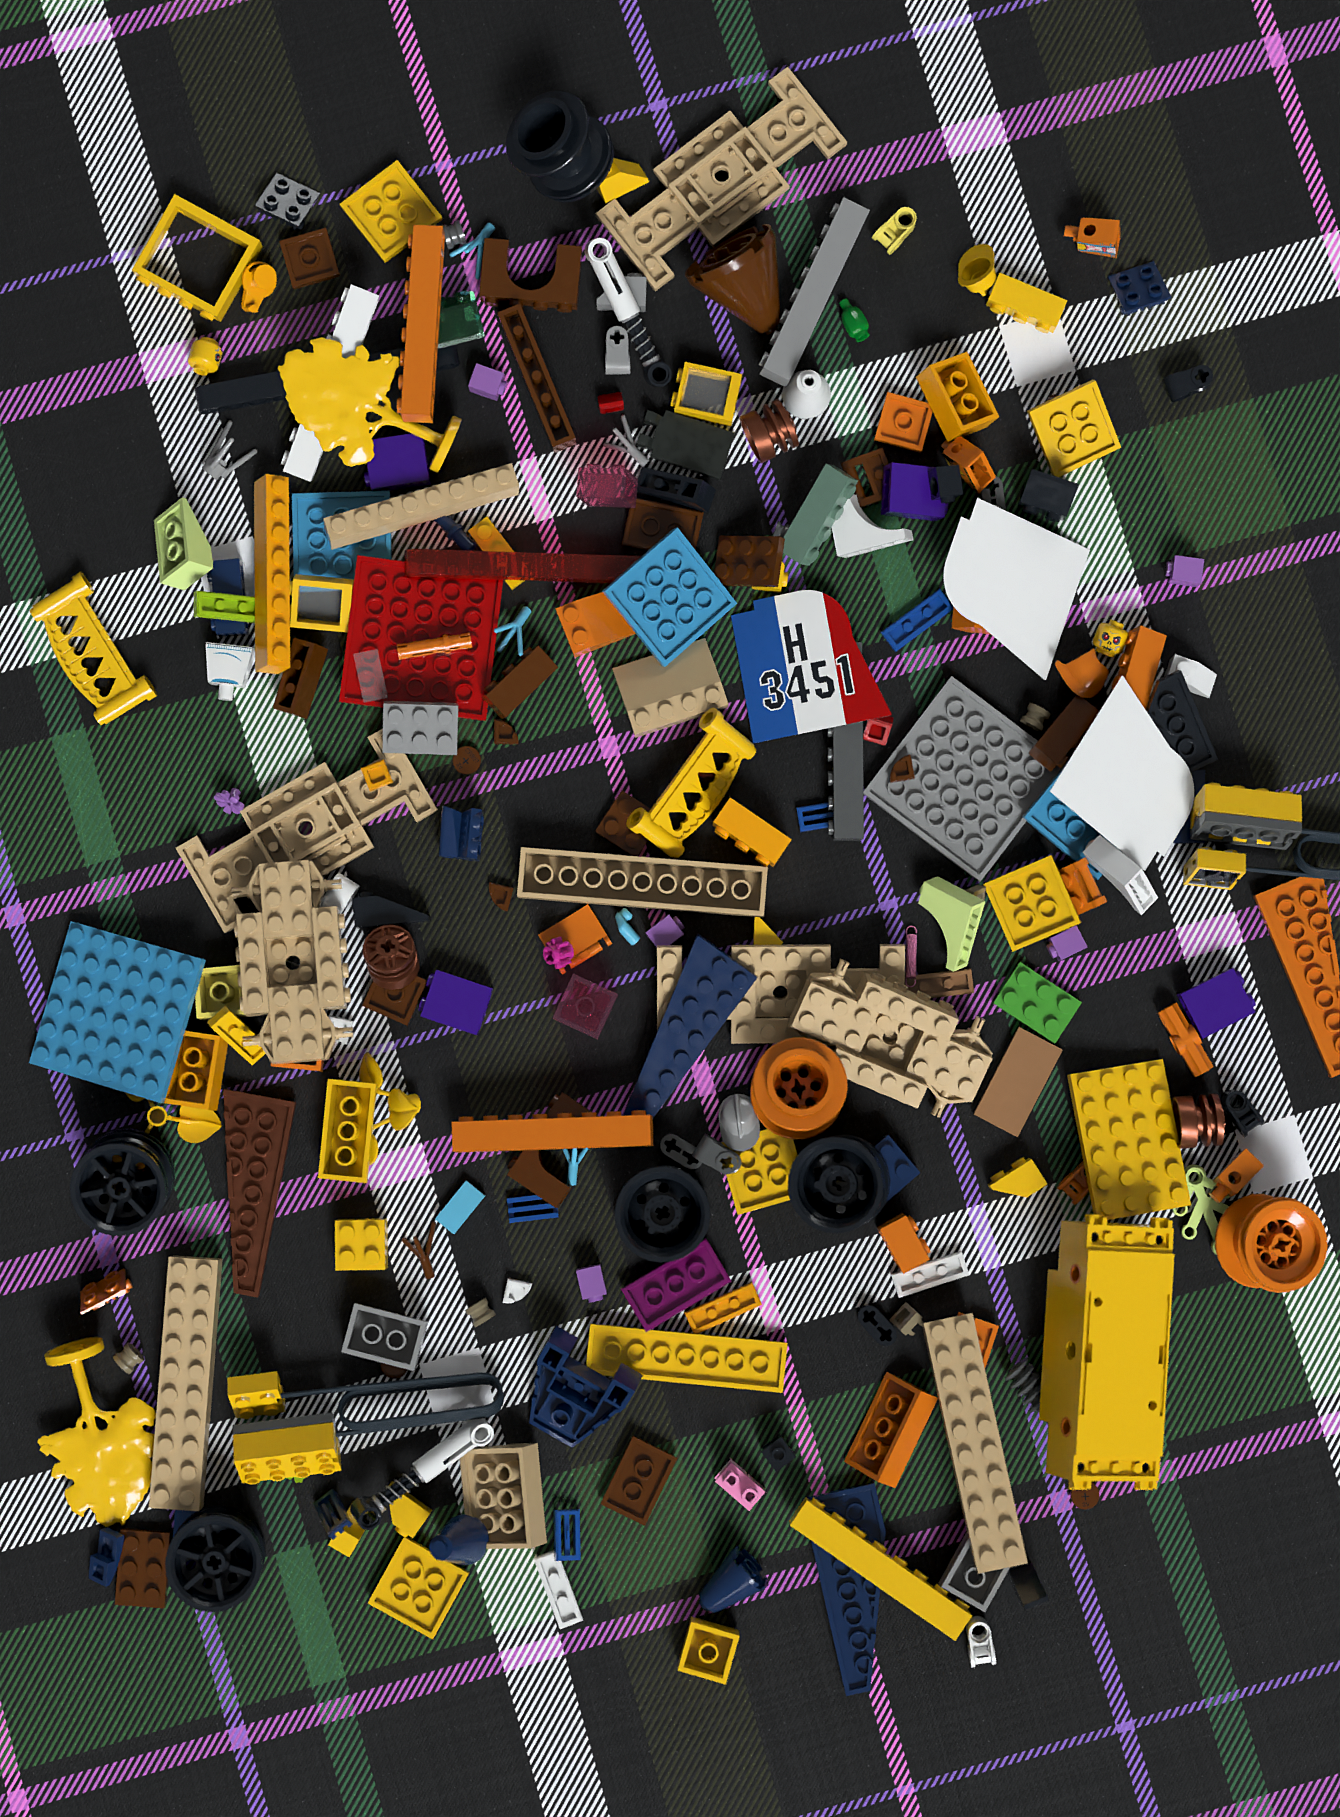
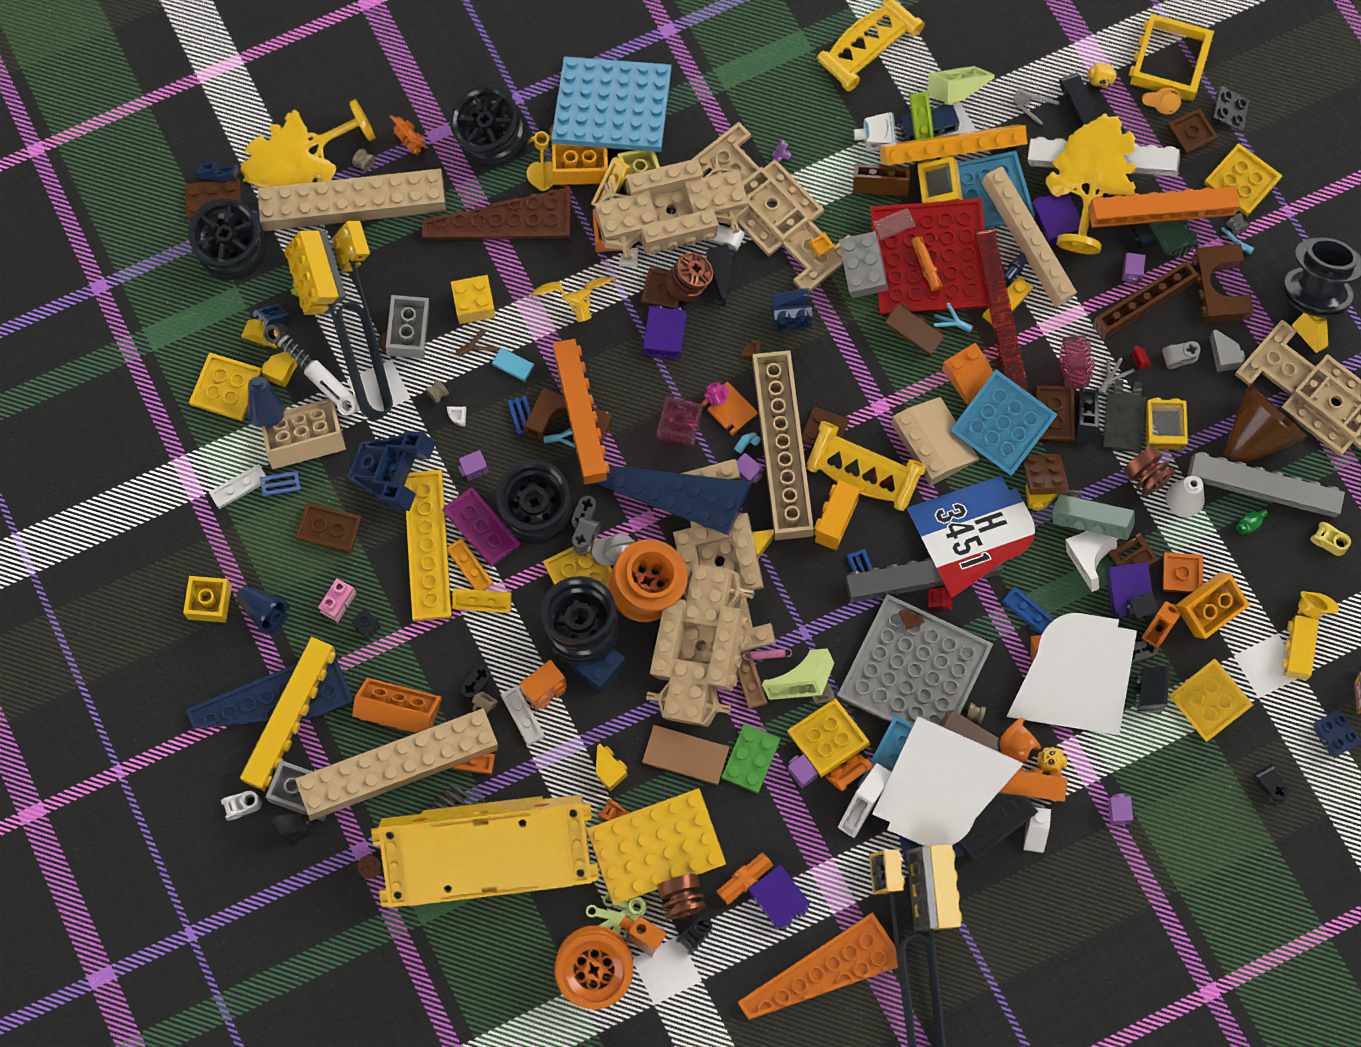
camera: 80 degrees right, 15 degrees down
(347, 1130) = (555, 270): yellow slope -> none
(467, 760) = (847, 307): reddish brown piece -> none
(504, 733) = (873, 330): reddish brown tile -> none
(626, 309) = (1214, 349): piece -> none
(774, 1300) = (482, 600): none -> yellow plate

